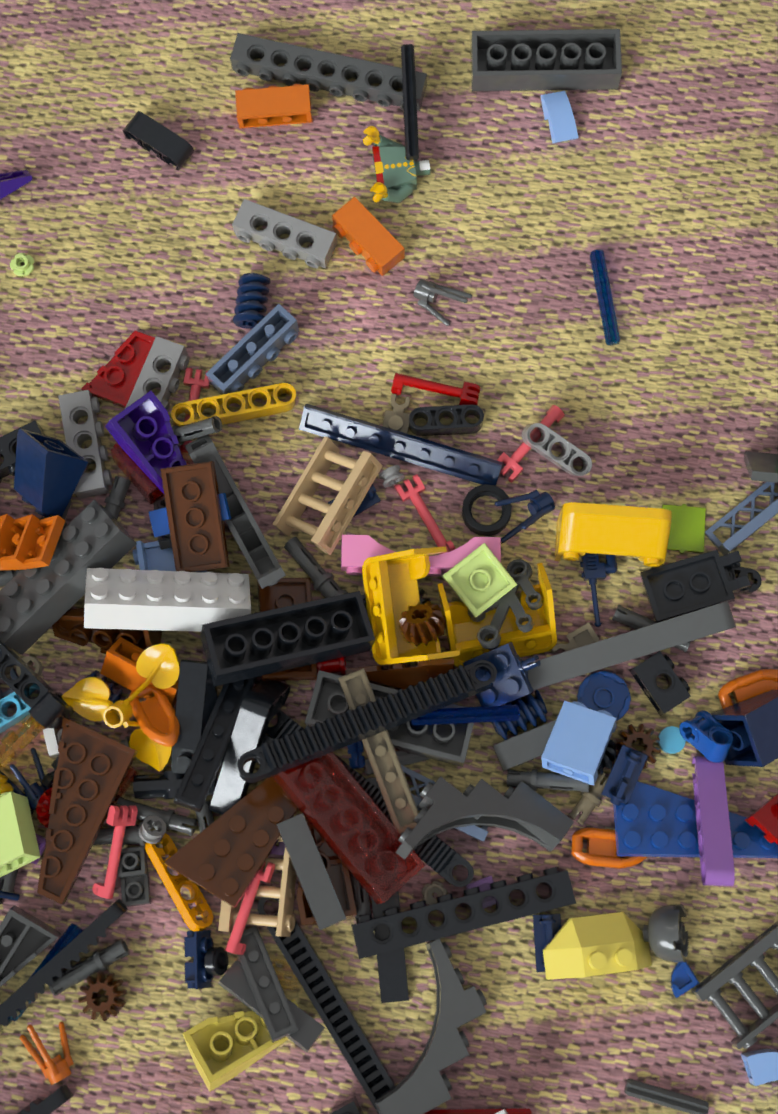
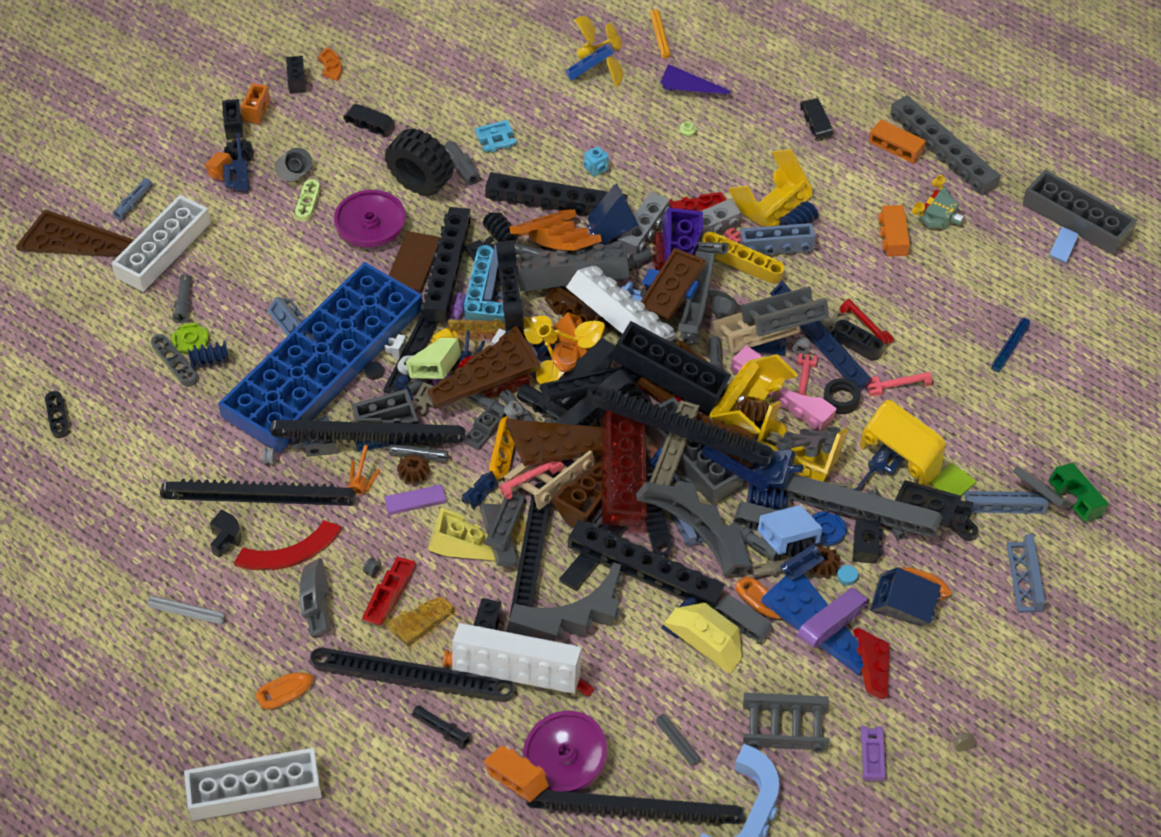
camera: 35 degrees right, 25 degrees down
(28, 884) = (423, 399): none -> dark tan plate
(120, 818) = (500, 394): coral hinge -> none
(136, 1031) = (415, 499): none -> medium lavender tile
(210, 286) = (790, 191): none -> yellow windscreen
(216, 961) = (488, 495): black tile -> none
(254, 215) = (847, 201): light grey brick -> none
(271, 494) = (723, 303): none -> dark grey piece
(311, 871) = (580, 478): dark grey tile -> none
(369, 467) = (784, 311): none -> dark grey fence
(409, 102) = (977, 179): black axle -> none
(428, 292) = (905, 277): dark grey plant -> none
(465, 630) = (772, 439): none -> dark tan bush
(479, 580) = (804, 418): yellowish green tile -> none
(539, 506) = (870, 411): dark blue plant -> none
(568, 453) = (910, 382): light grey beam -> none
(613, 890) = (746, 619): none -> dark grey beam
(667, 933) = (756, 654): dark grey cylinder -> none
(682, 979) = (738, 692): blue tile -> none
(708, 736) = (869, 581): blue piece -> none

